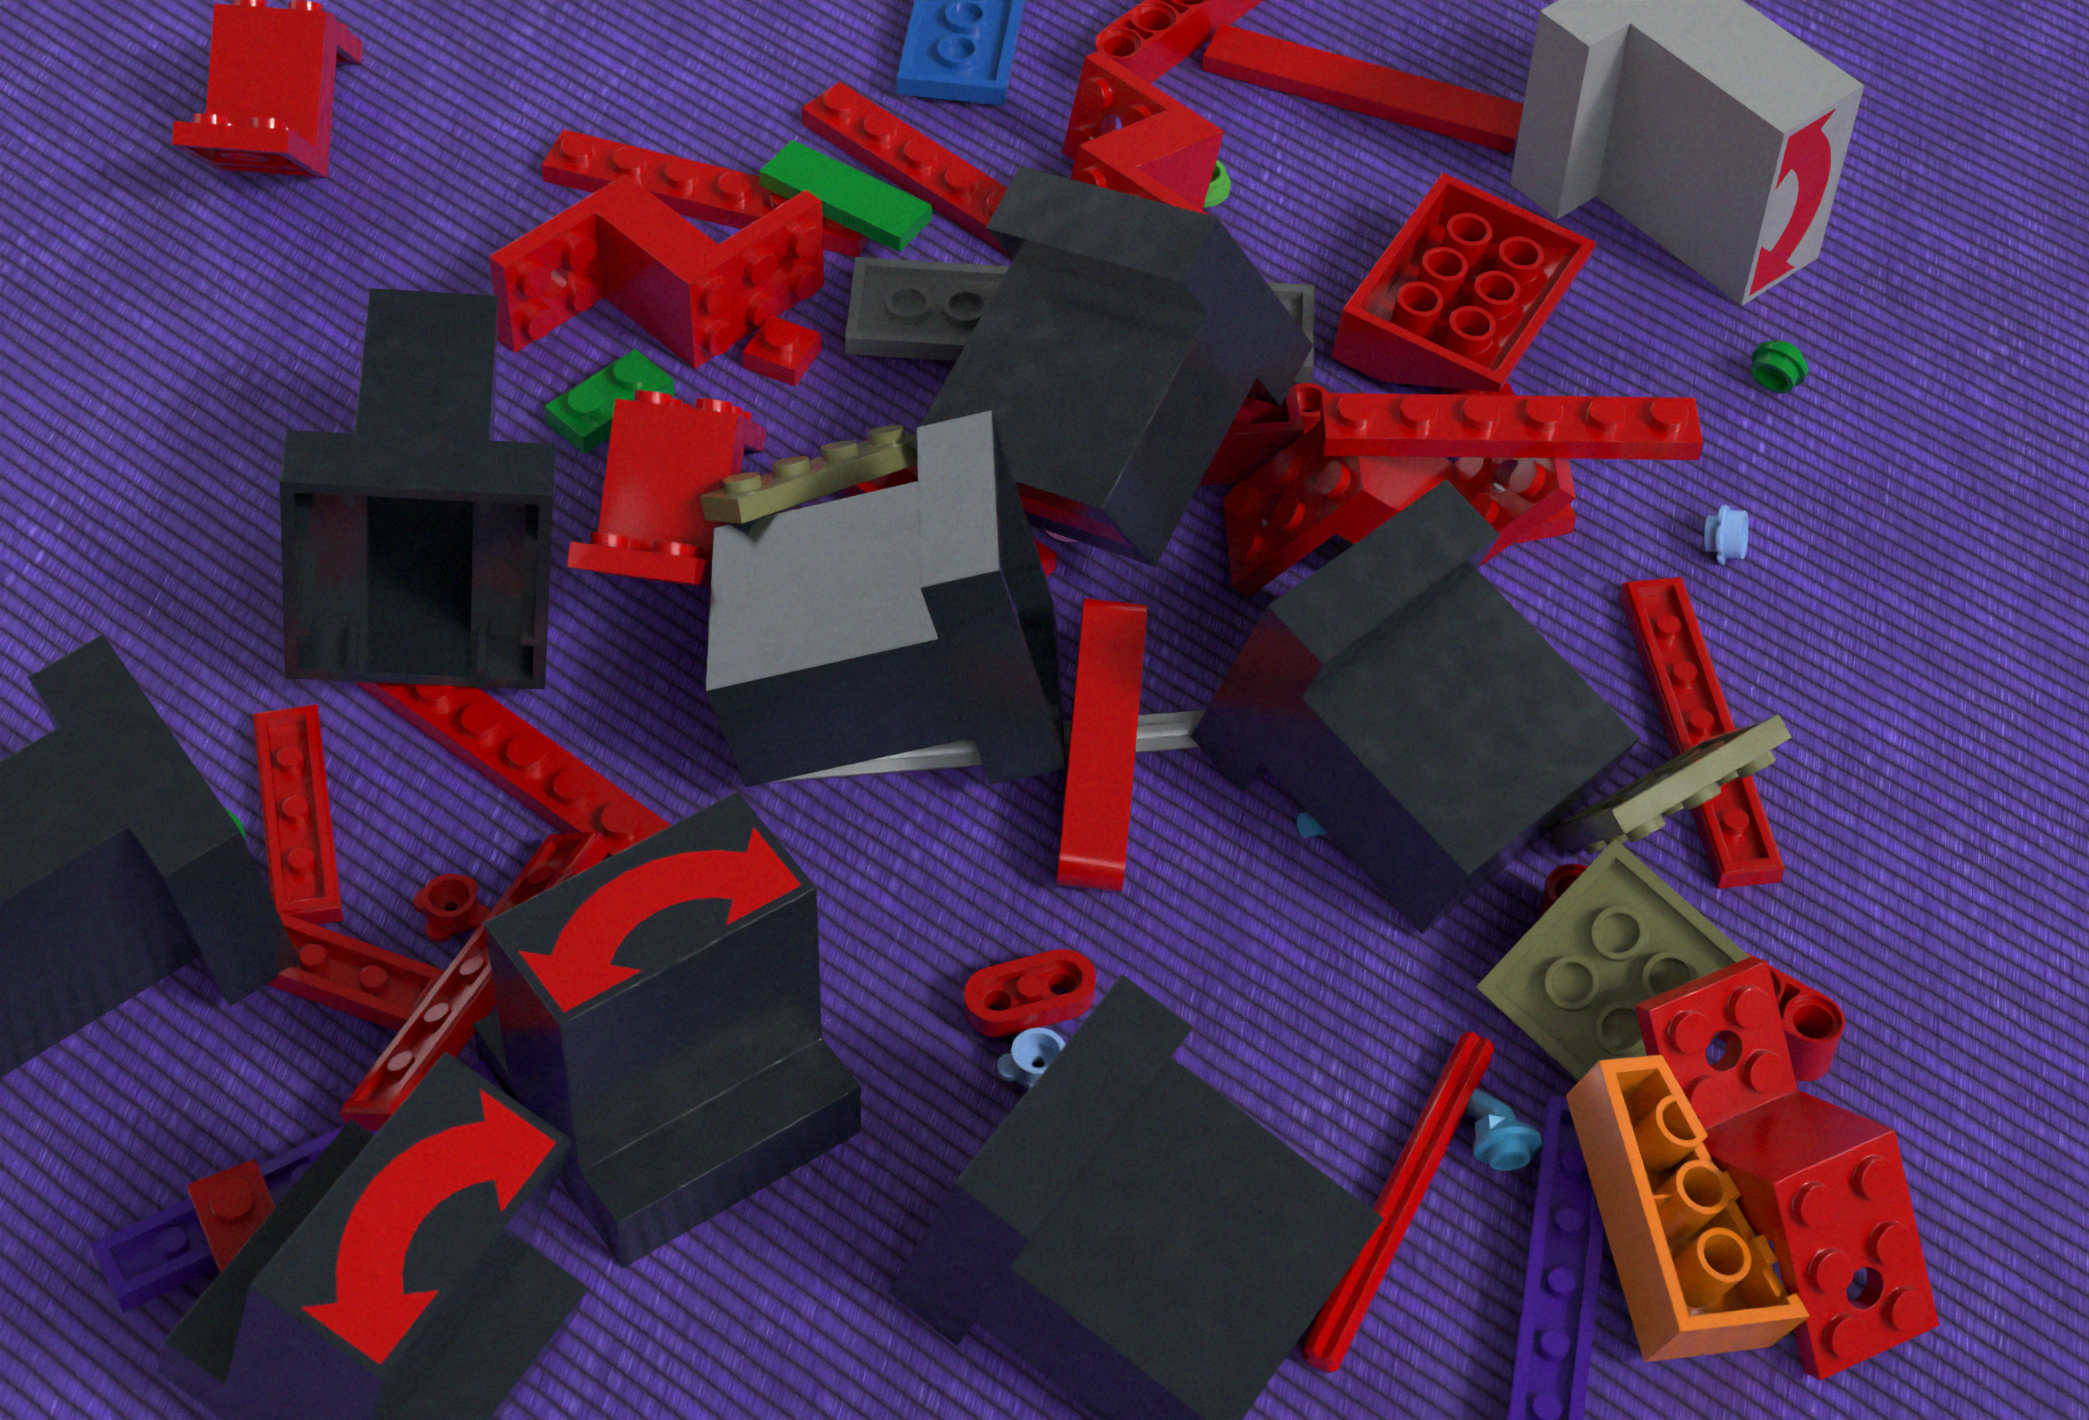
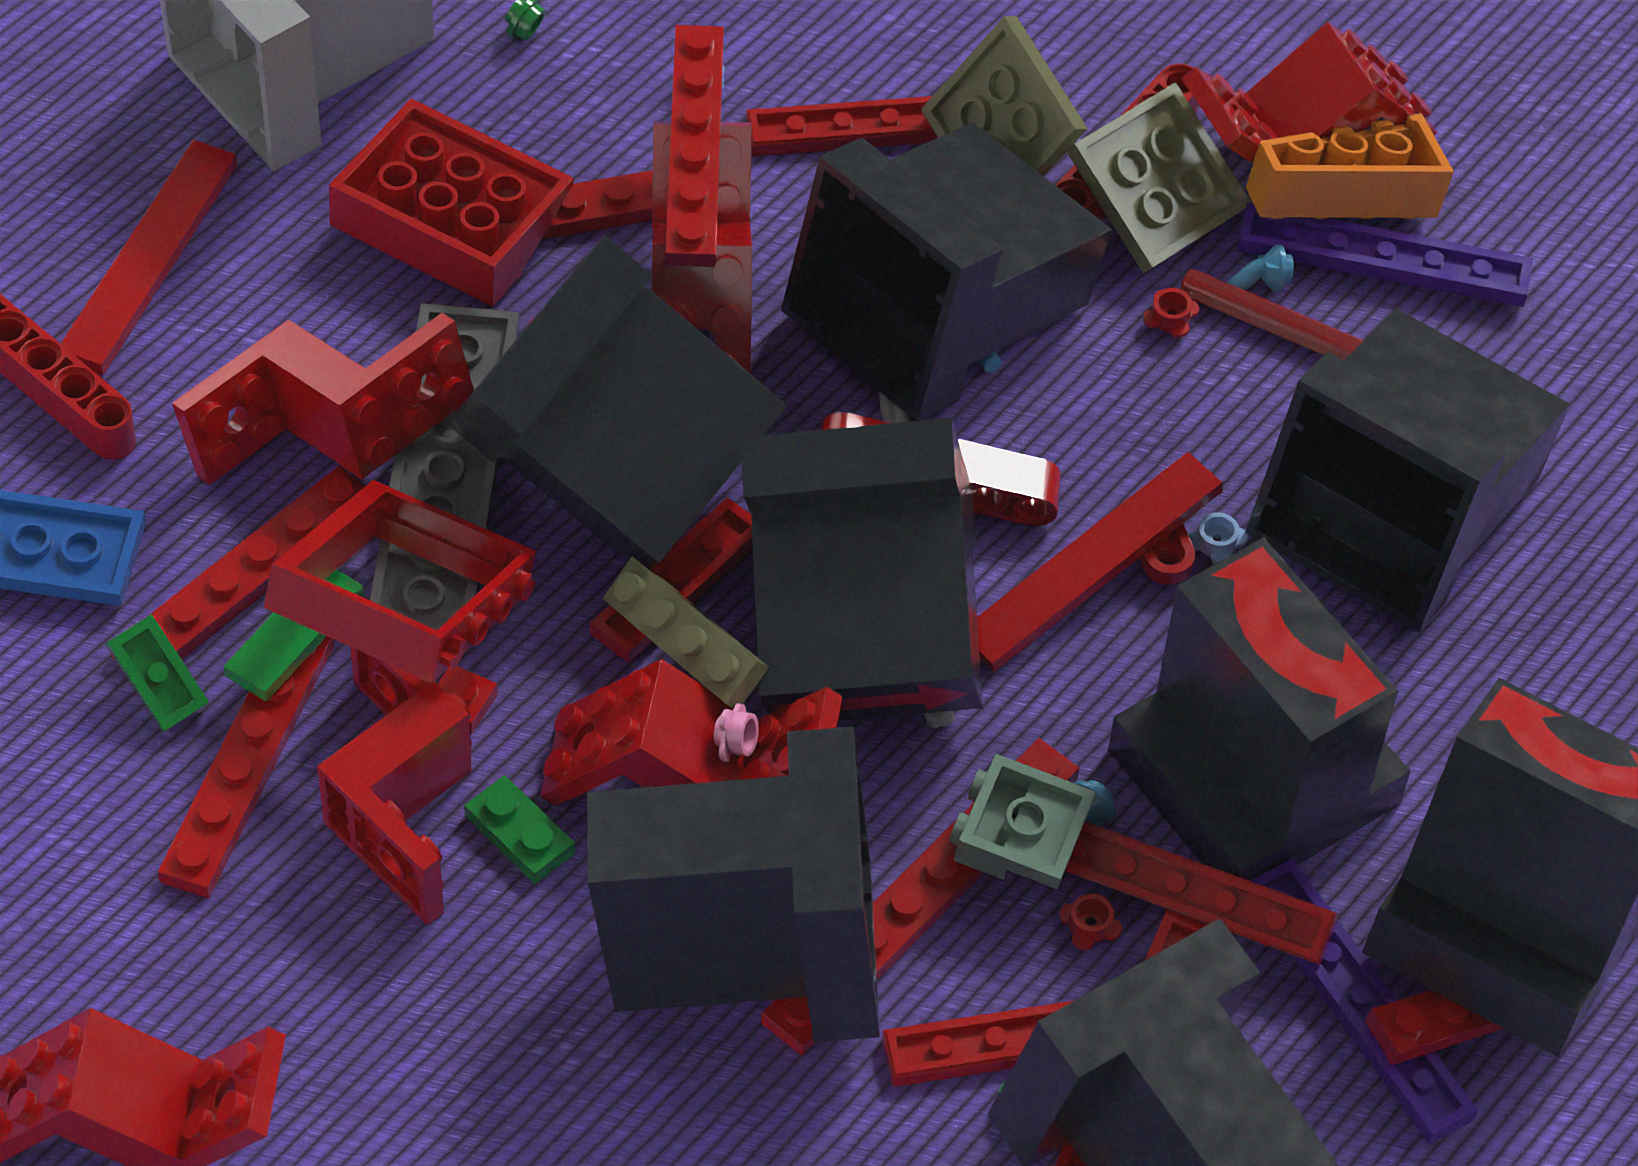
camera: 90 degrees left, 5 degrees up
(552, 797) = (1021, 822): none -> sand green plate
(657, 520) = (736, 733): none -> bright pink plate
(793, 102) = (157, 673): none -> green plate
(905, 170) = (302, 595): none -> red window
(972, 903) = (1094, 559): none -> red tile
(1421, 1009) = (1170, 302): none -> red plate

